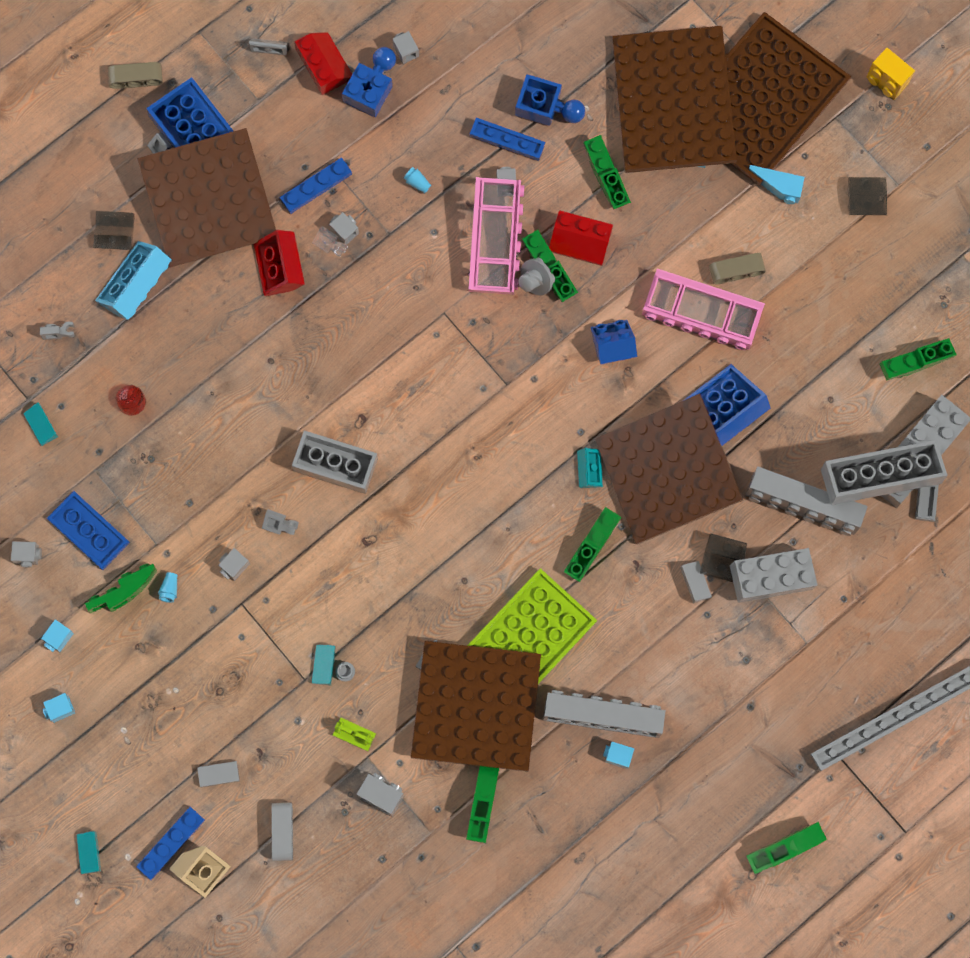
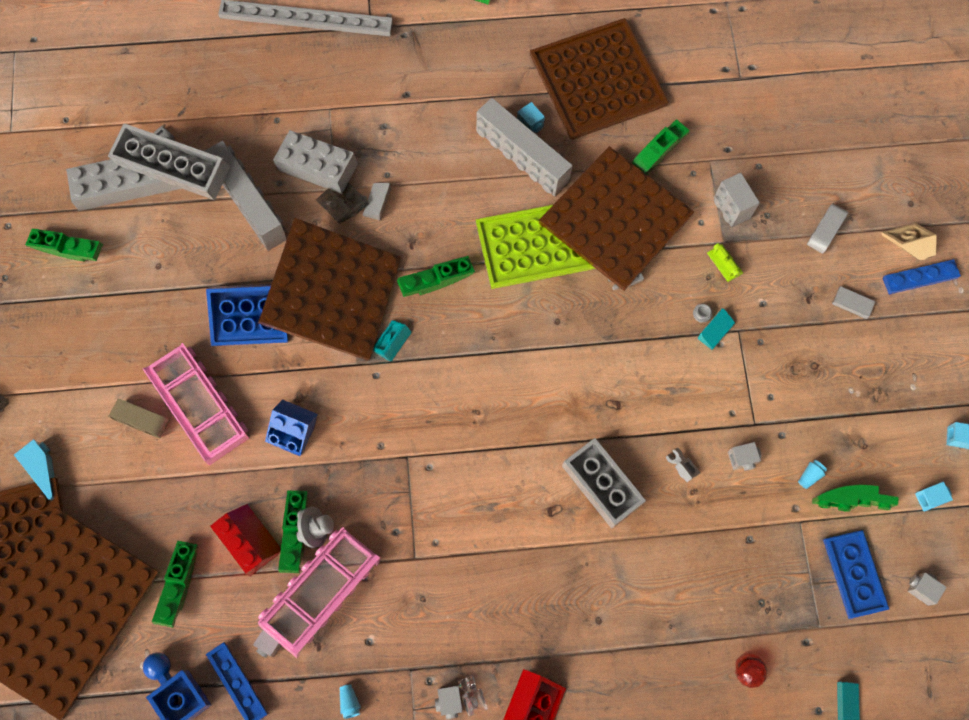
camera: 145 degrees left, 5 degrees down
(587, 845) = (598, 78): none -> reddish brown plate

